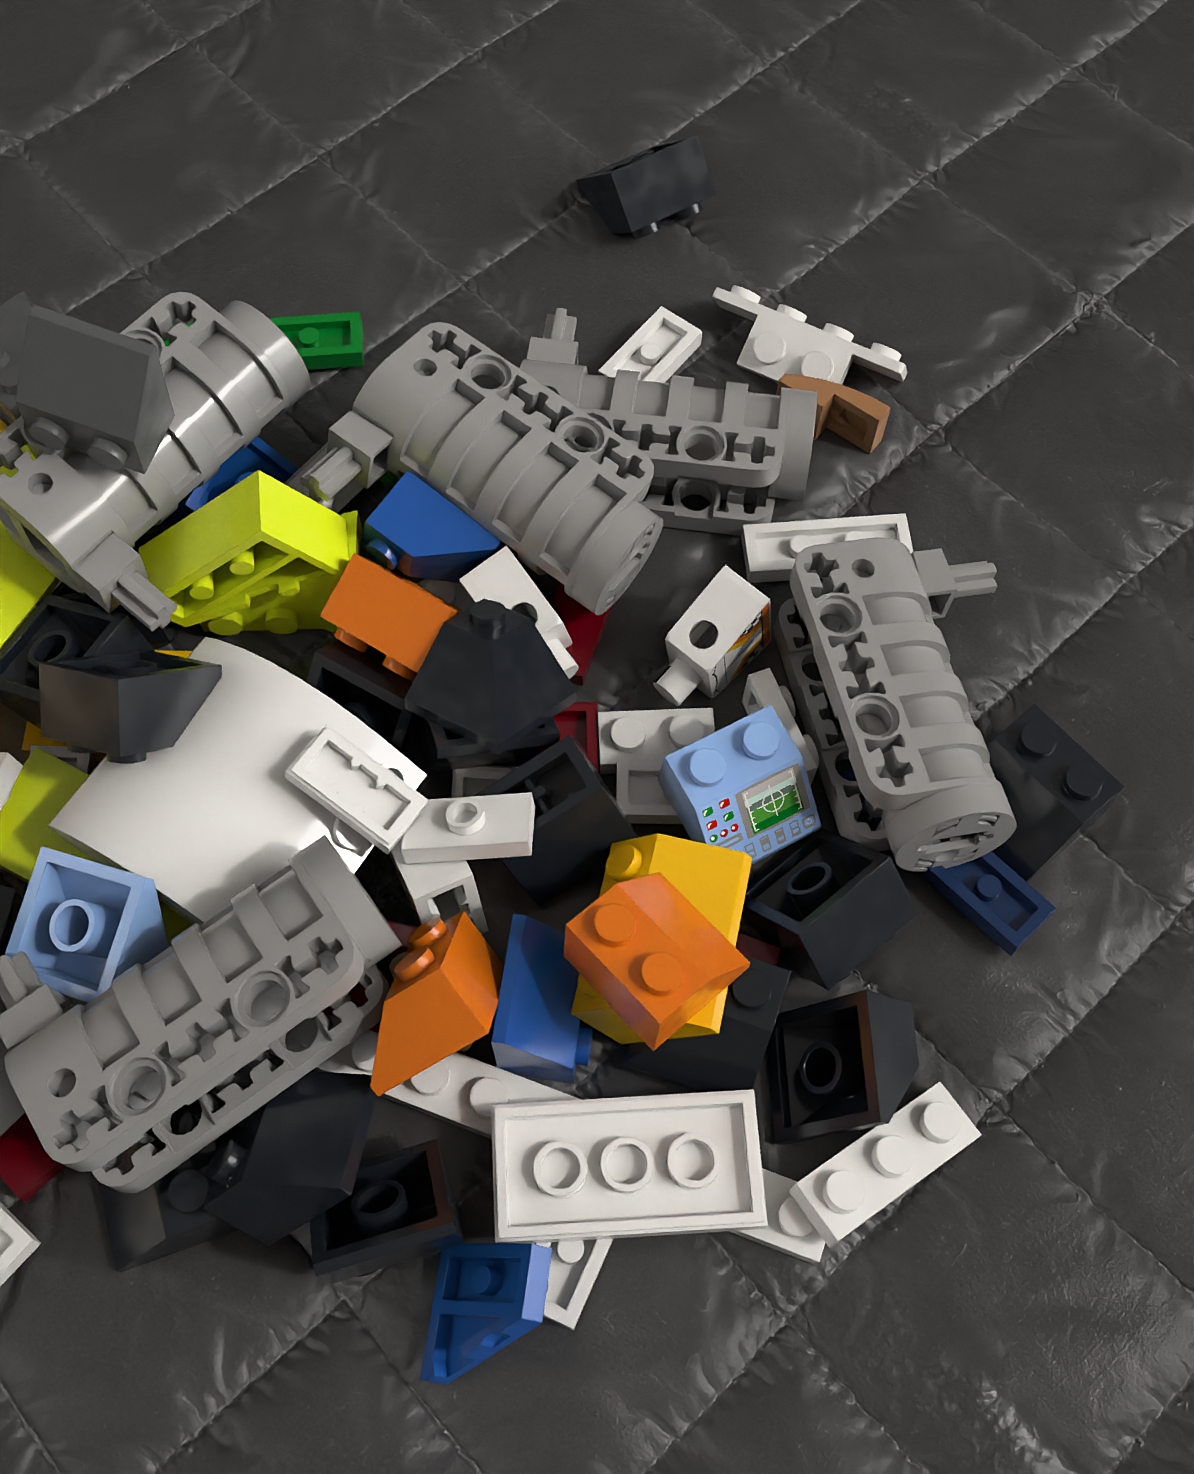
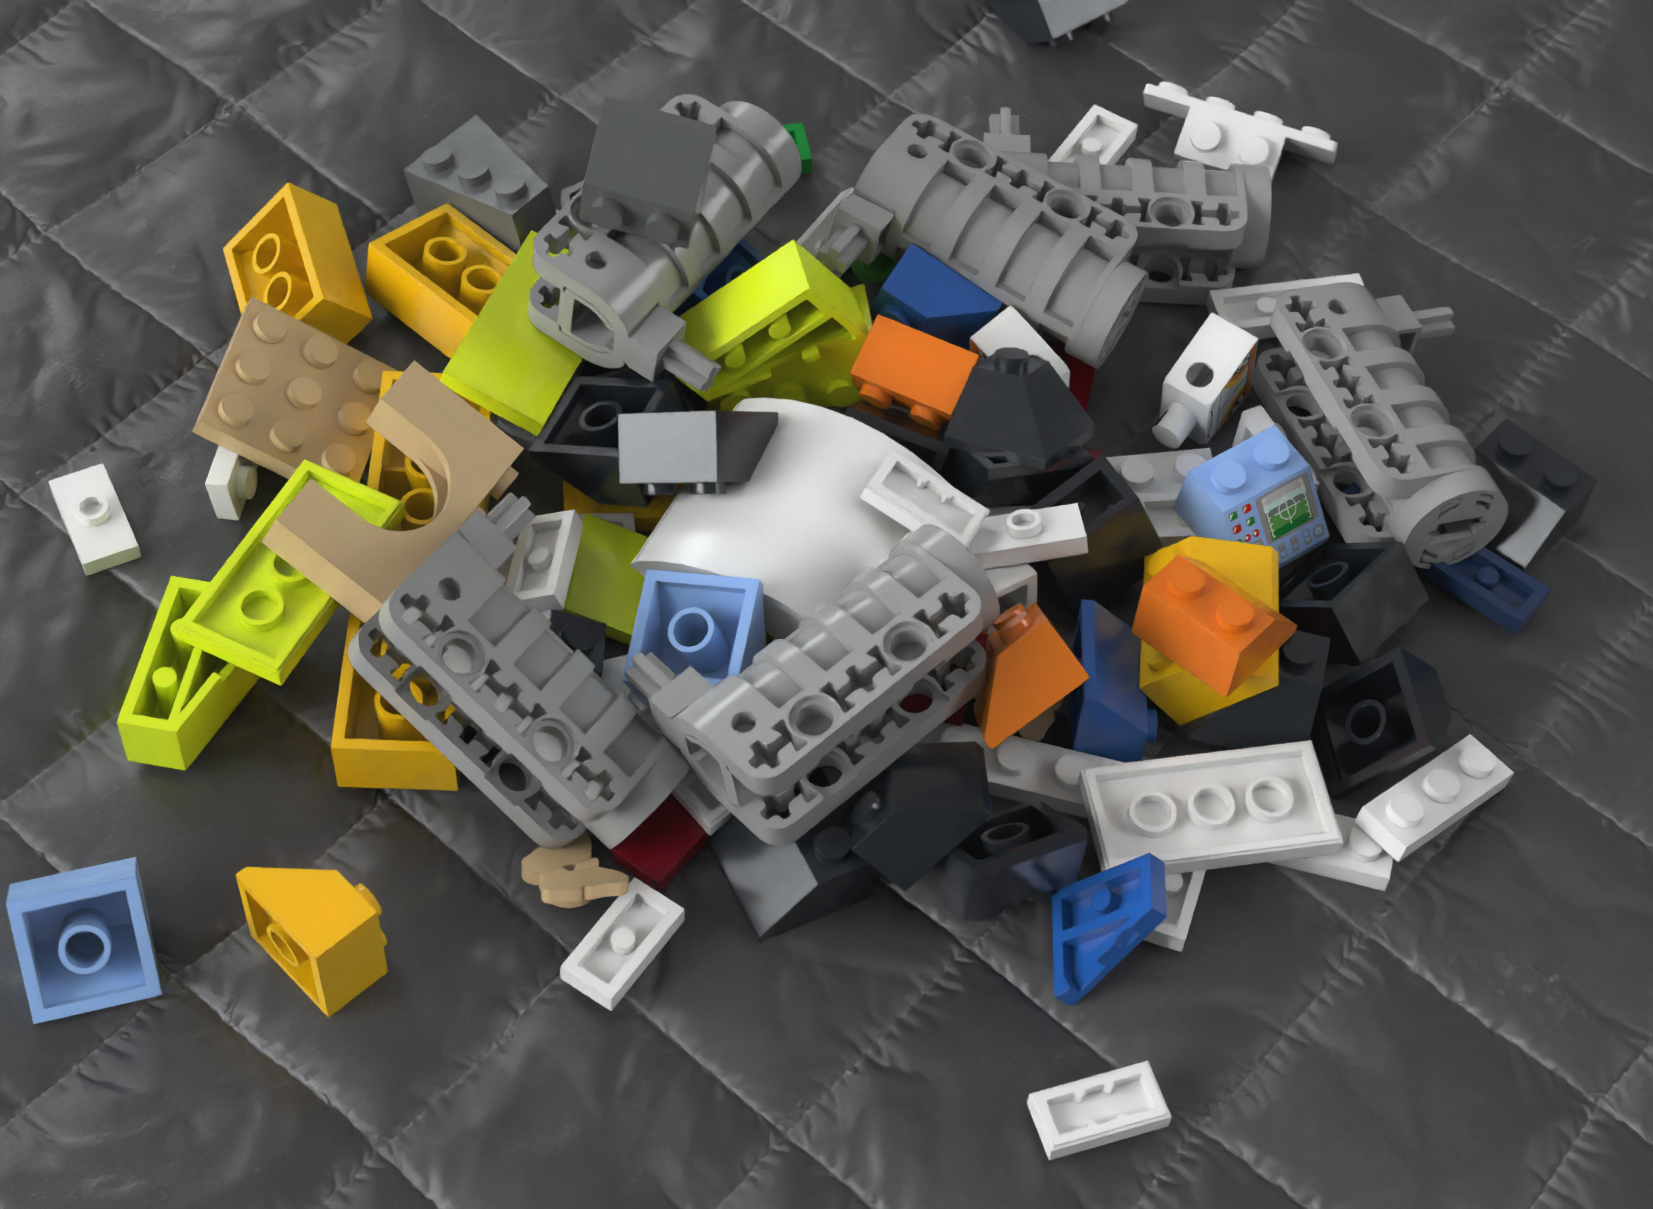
camera: 10 degrees left, 10 degrees down
(843, 410) = (1294, 190): medium nougat slope -> none

